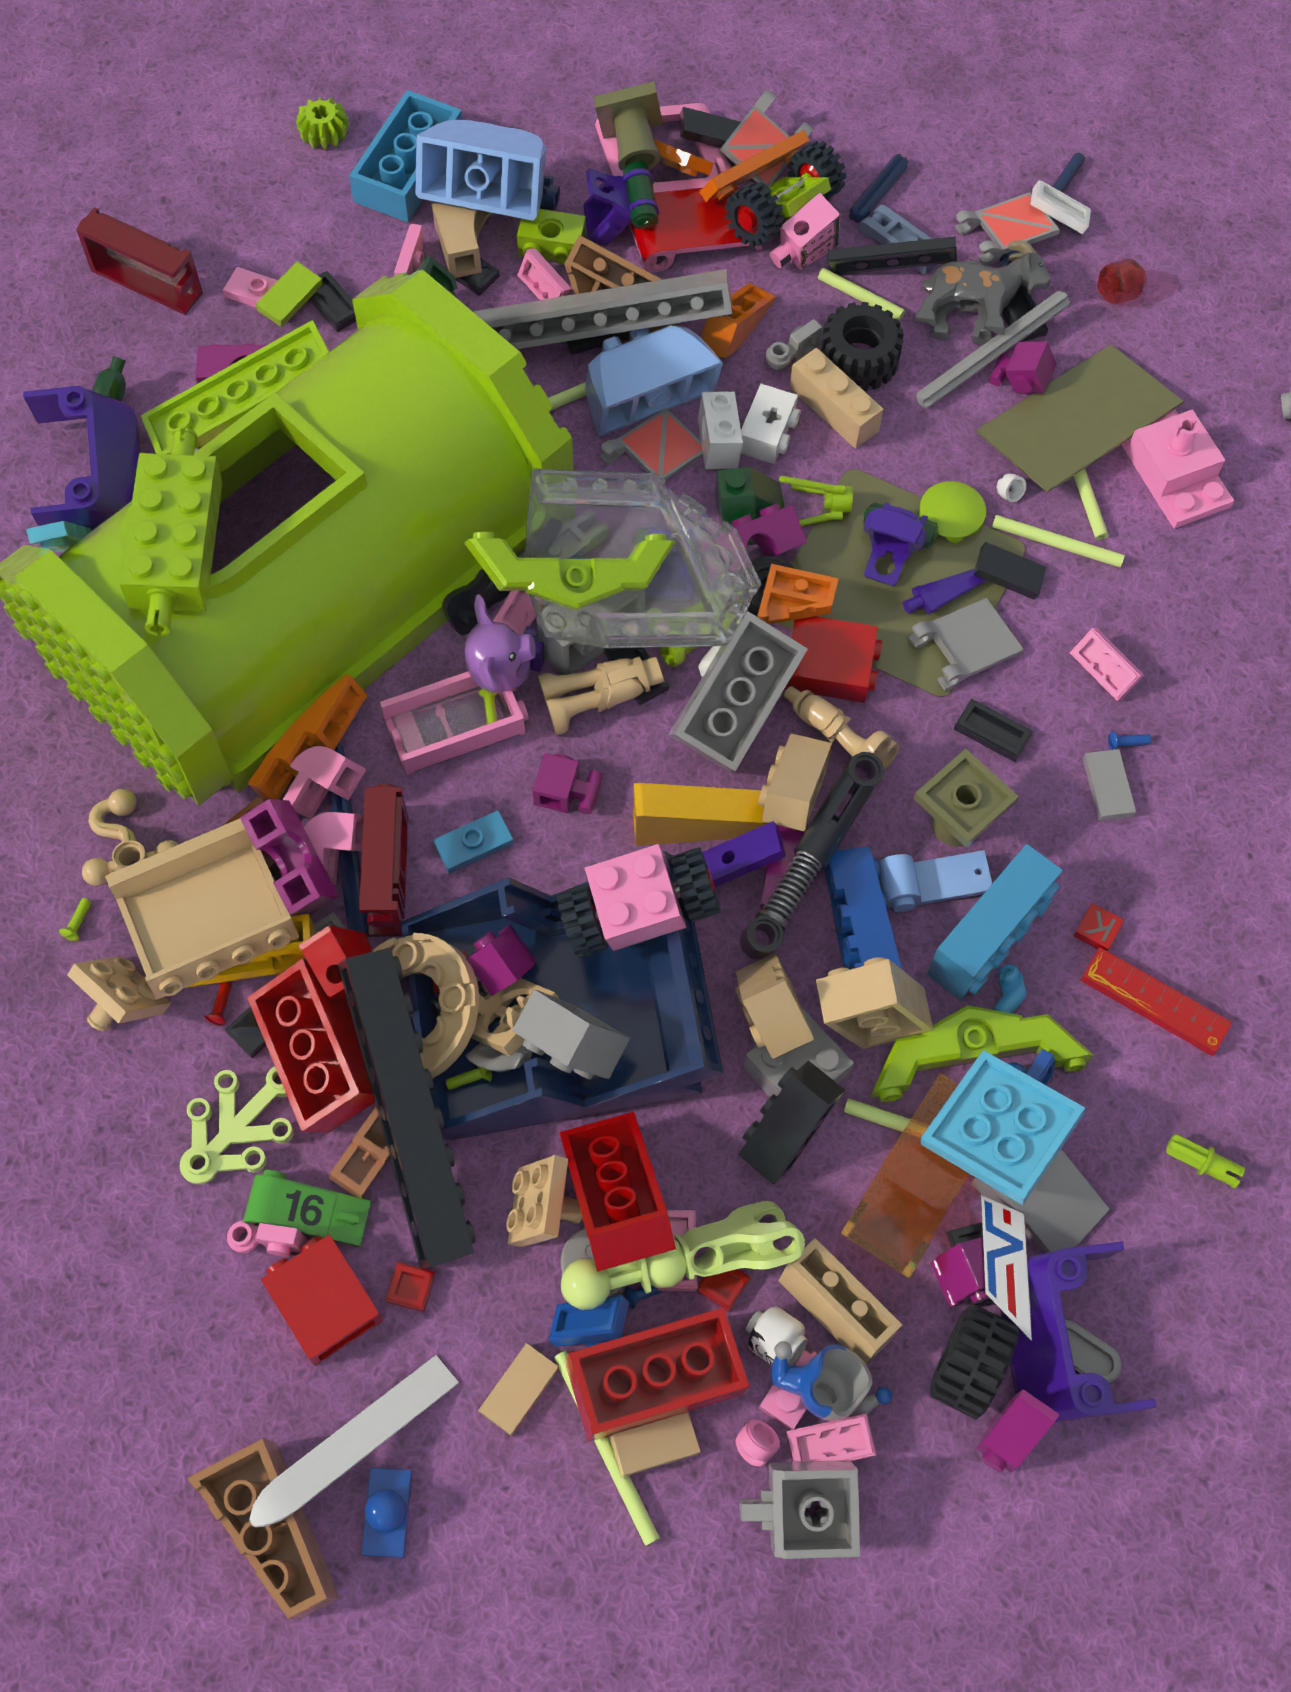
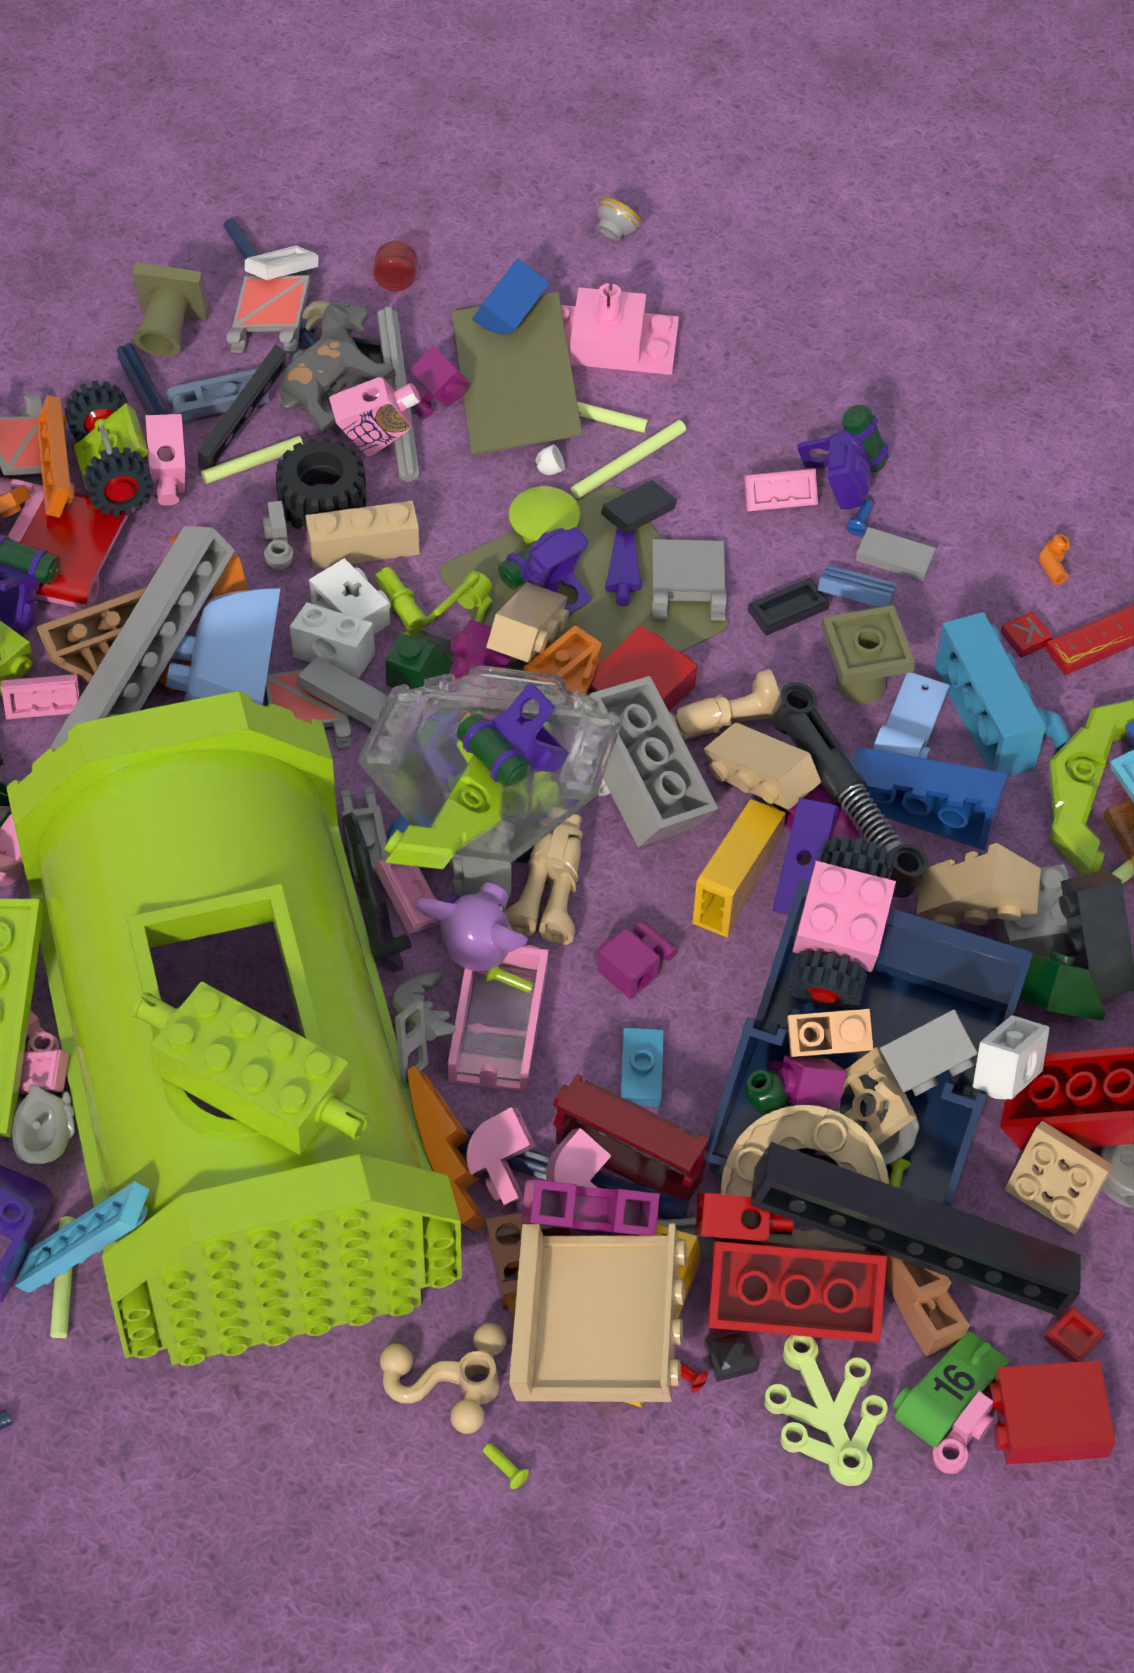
camera: 60 degrees left, 10 degrees down
(117, 990) = (626, 1449): tan plate -> none
(406, 664) = (422, 1020): none -> light grey piece
(466, 930) = (766, 1092): none -> dark green plant
(546, 951) = (830, 1033): none -> light nougat slope
(600, 1100) = (1010, 1057): none -> white brick
(647, 575) = (514, 742): none -> dark purple piece
(681, 460) = (342, 691): none -> light grey tile
(719, 1116) = (1062, 987): none -> dark green slope
(797, 454) = (401, 599): none -> lime axle
(818, 544) = (528, 622): none -> tan brick
(873, 1003) = (1028, 809): tan brick -> none
(947, 337) = (374, 413): none -> bright pink torso
(958, 156) = (167, 298): none -> olive plant
(1048, 771) = (857, 586): none -> medium blue tile
(1144, 369) = (511, 299): none -> blue brick
(1173, 696) = (851, 456): none -> dark purple piece
(1198, 910) = (1052, 556): none -> orange arm

